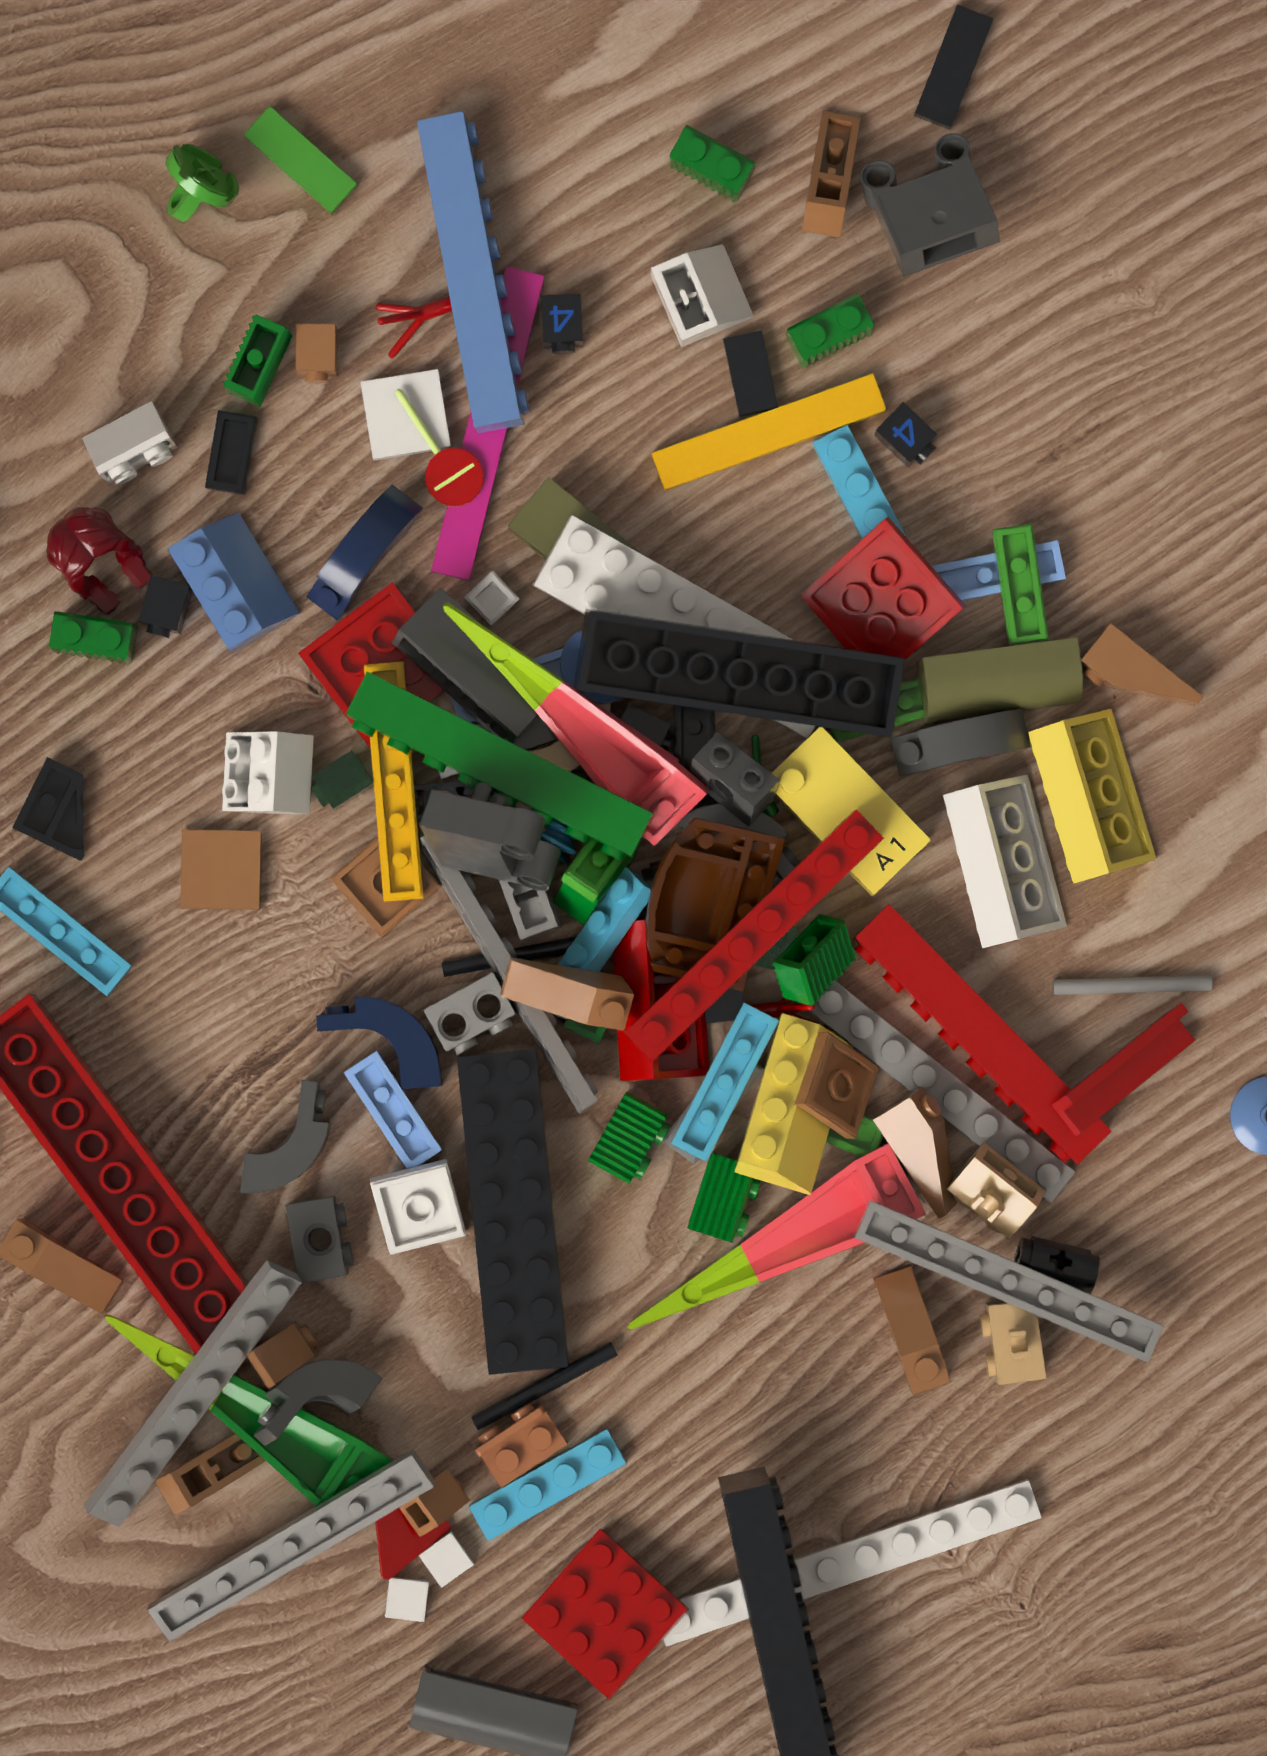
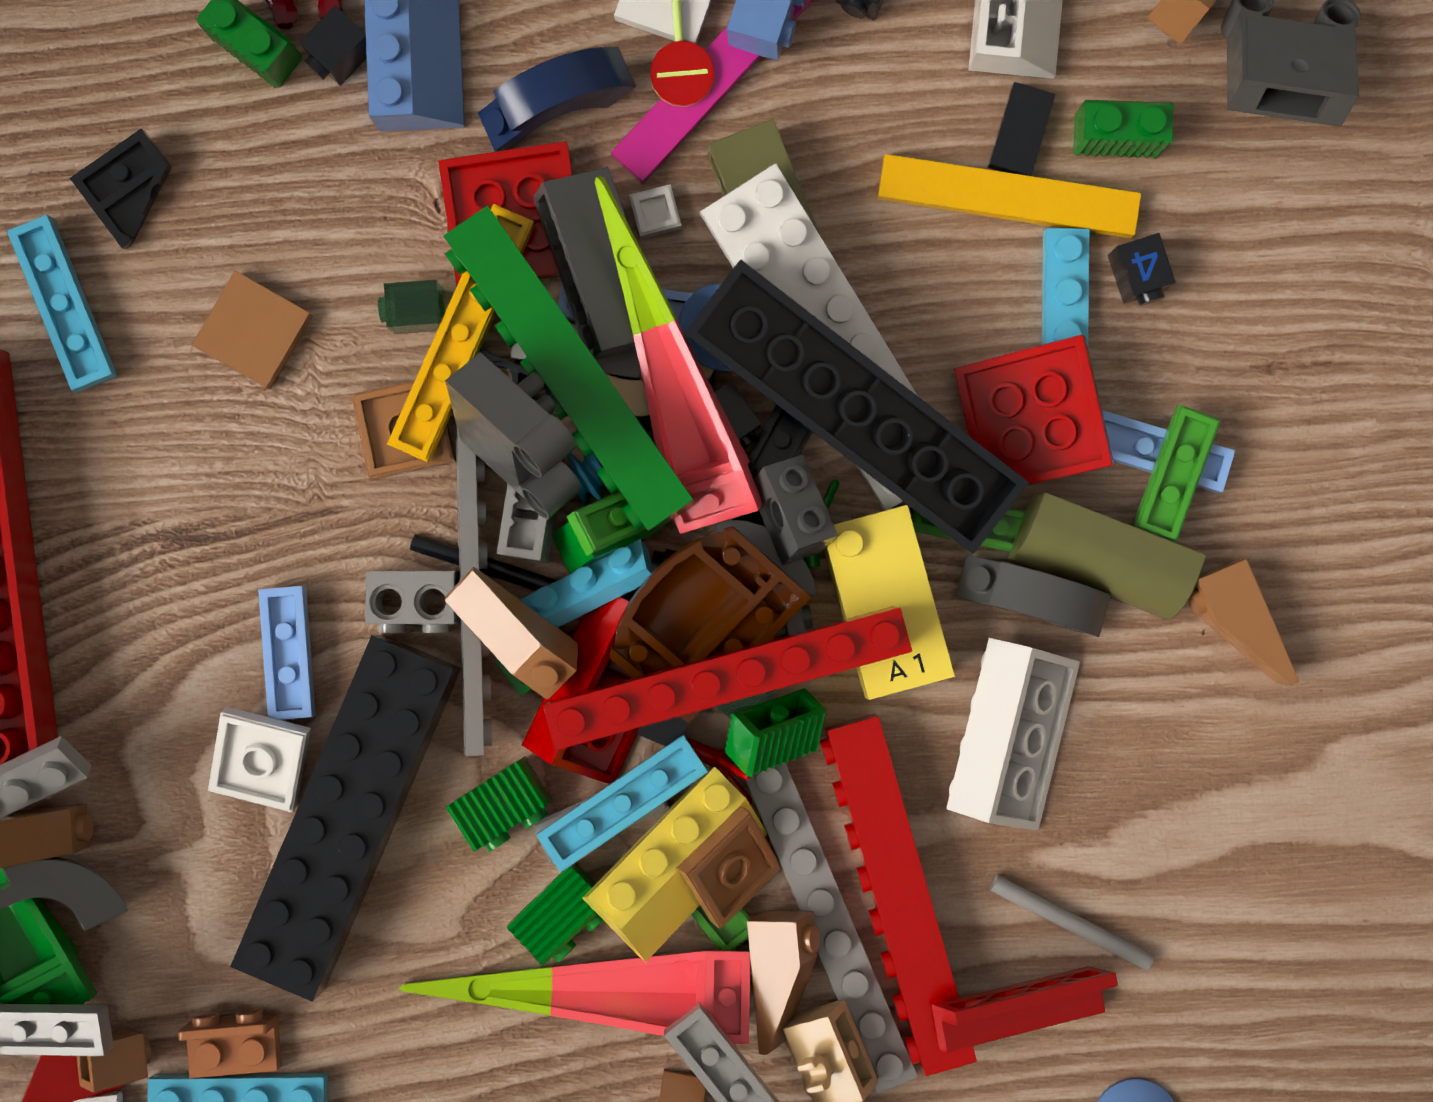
camera: 25 degrees right, 0 degrees up
(267, 772) = (346, 260): white slope -> none
(297, 1155) = (193, 632): dark grey arch -> none
(311, 1262) = (126, 756): dark grey brick -> none
(412, 1042) = (338, 580): dark blue arch -> none
(544, 1386) = (285, 1000): black bar -> none
(1092, 795) = (1132, 717): light yellow slope -> none

